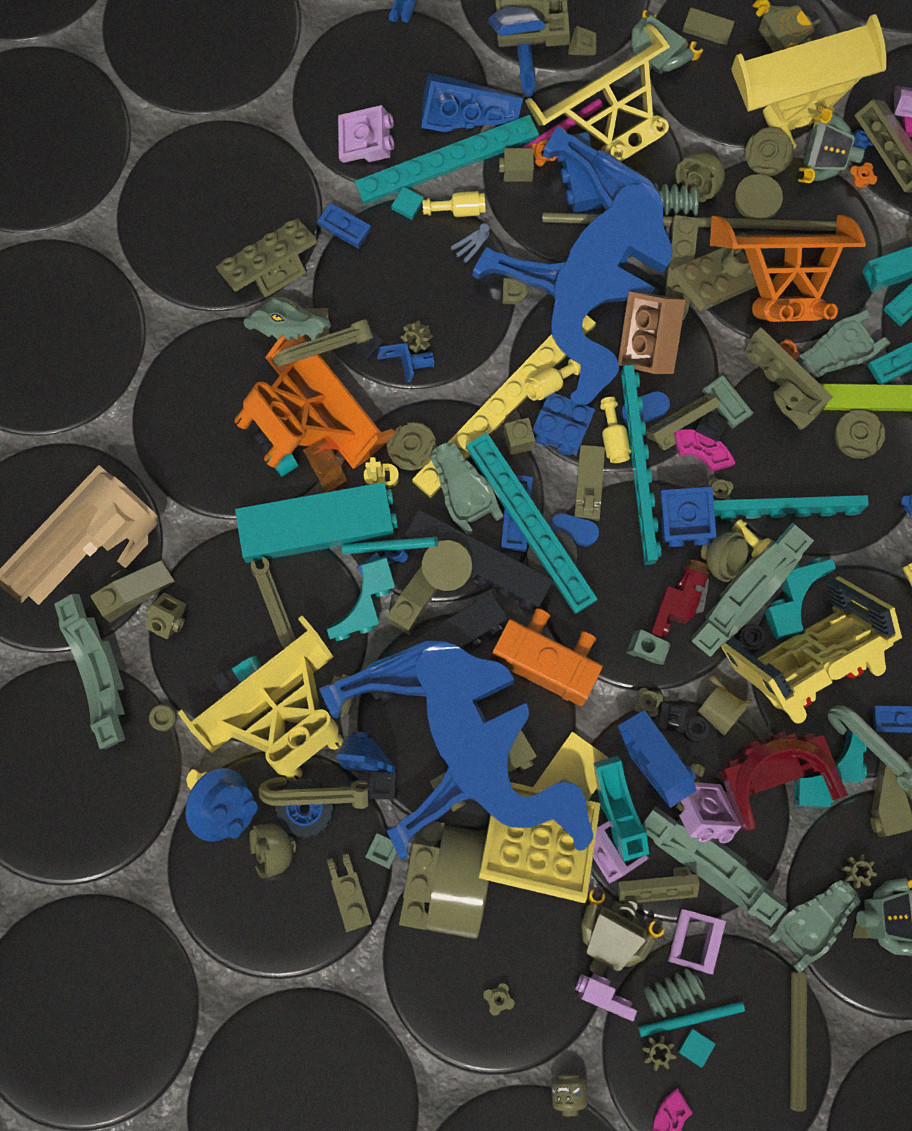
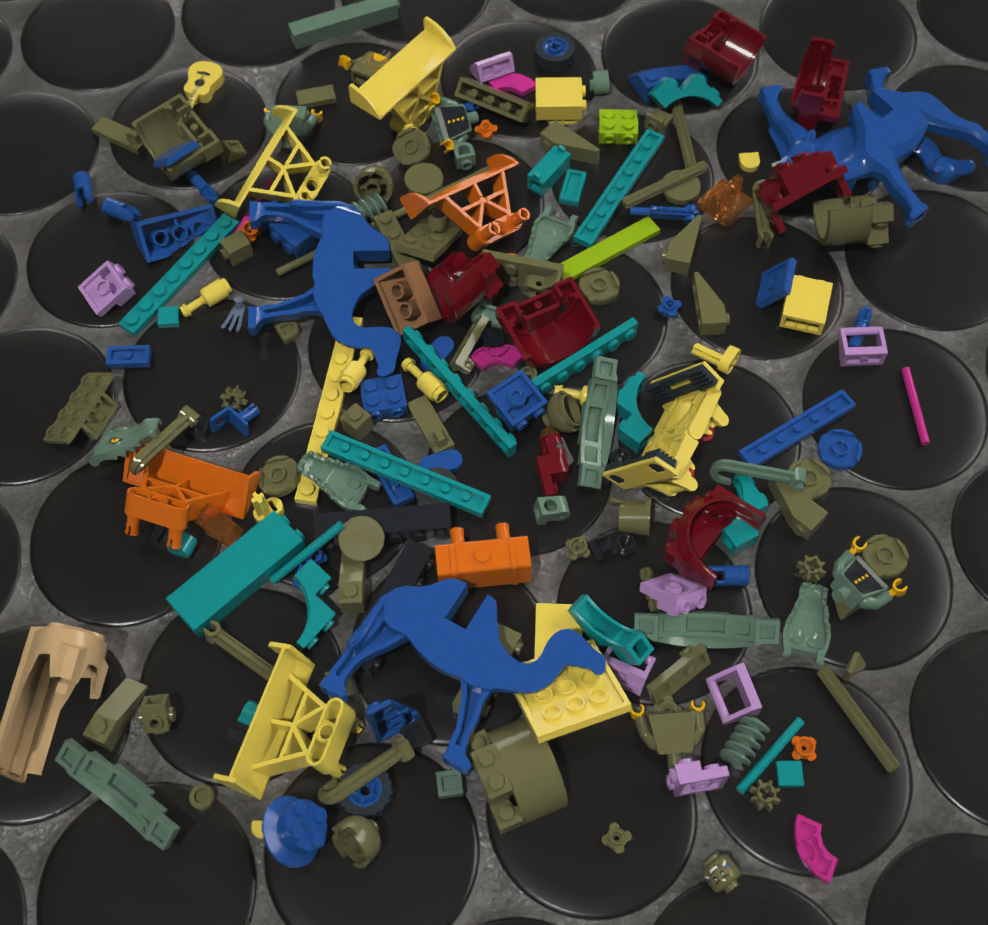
camera: 30 degrees left, 15 degrees down
(349, 896) = (445, 837): olive hinge -> none
(428, 49) = (120, 210): none -> blue hinge
(657, 759) = (612, 577): blue wedge -> none
(703, 361) = (475, 282): none -> dark red piece
(734, 1034) = (809, 743): none -> orange plate
(768, 455) = (542, 332): none -> dark red piece
(778, 826) = (732, 574): none -> blue hinge
(818, 196) = (464, 156): none -> sand green plate
(831, 990) = (854, 666): none -> olive slope

